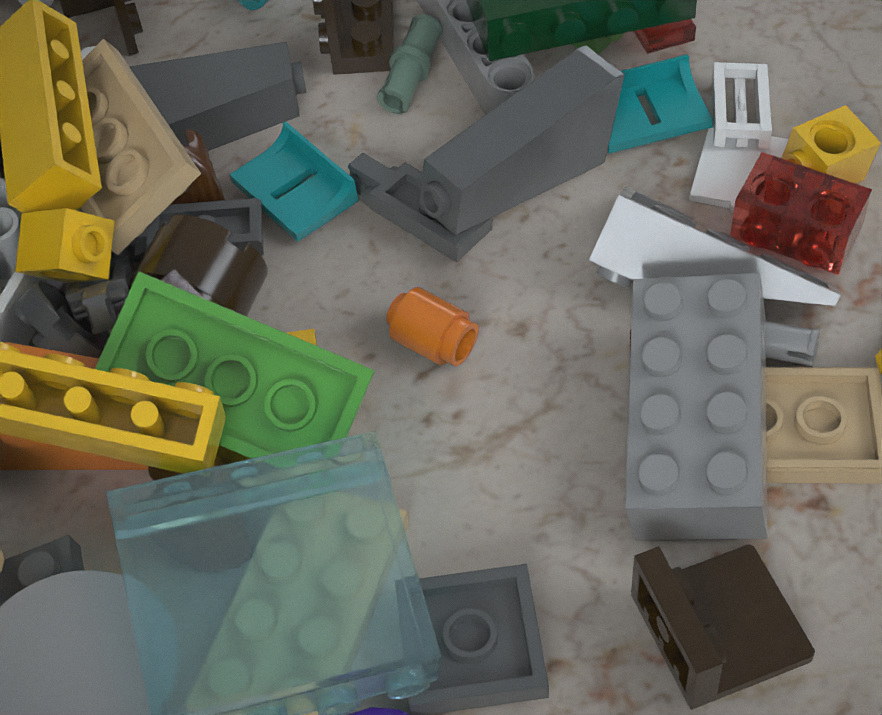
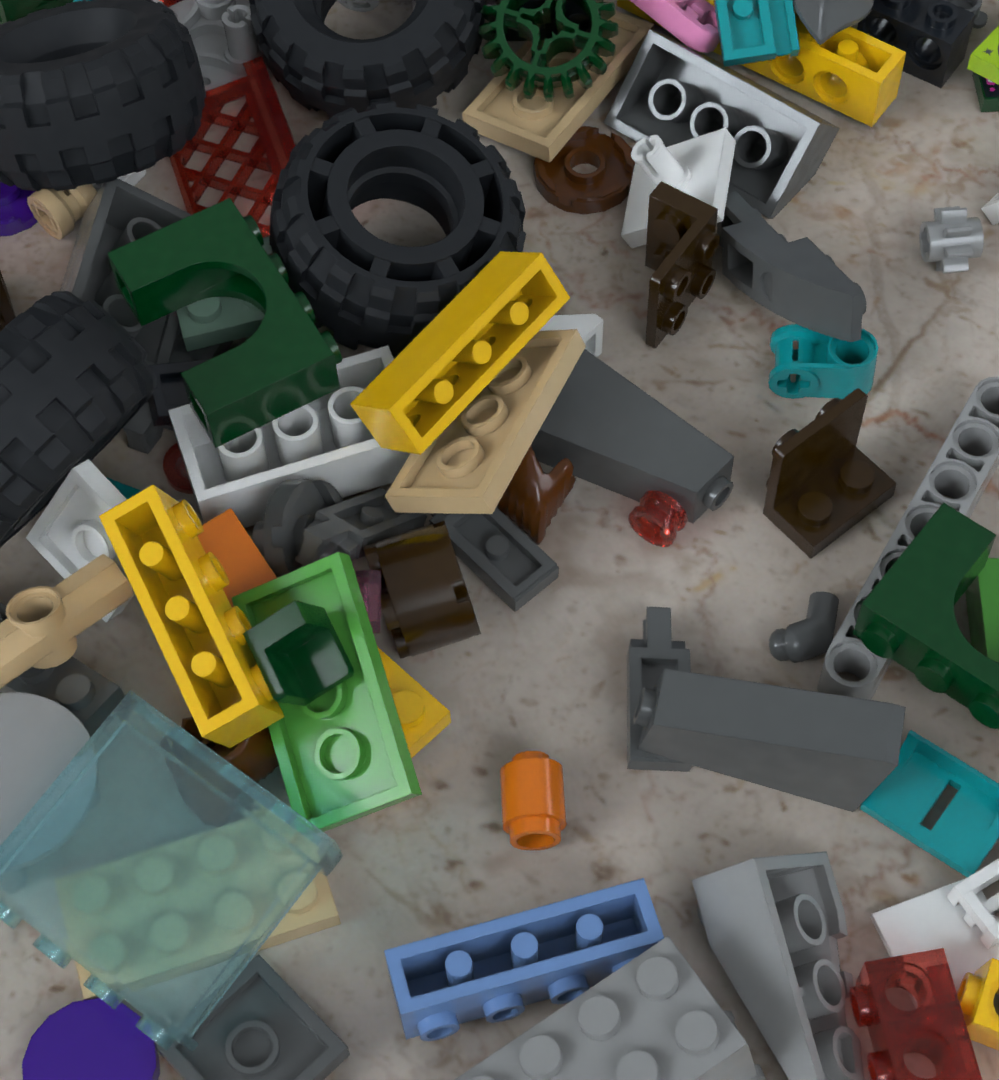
camera: 50 degrees right, 5 degrees up
(64, 245) = (356, 473): yellow brick -> none
(193, 355) = (299, 653): none -> dark green panel
(276, 111) = (658, 518): none -> clear red bush
(286, 165) = (606, 555): teal piece -> none
(410, 64) = (816, 567): sand green pin -> none
(455, 94) = (809, 636): none -> dark grey arm
(556, 404) = (519, 960): none -> medium blue brick

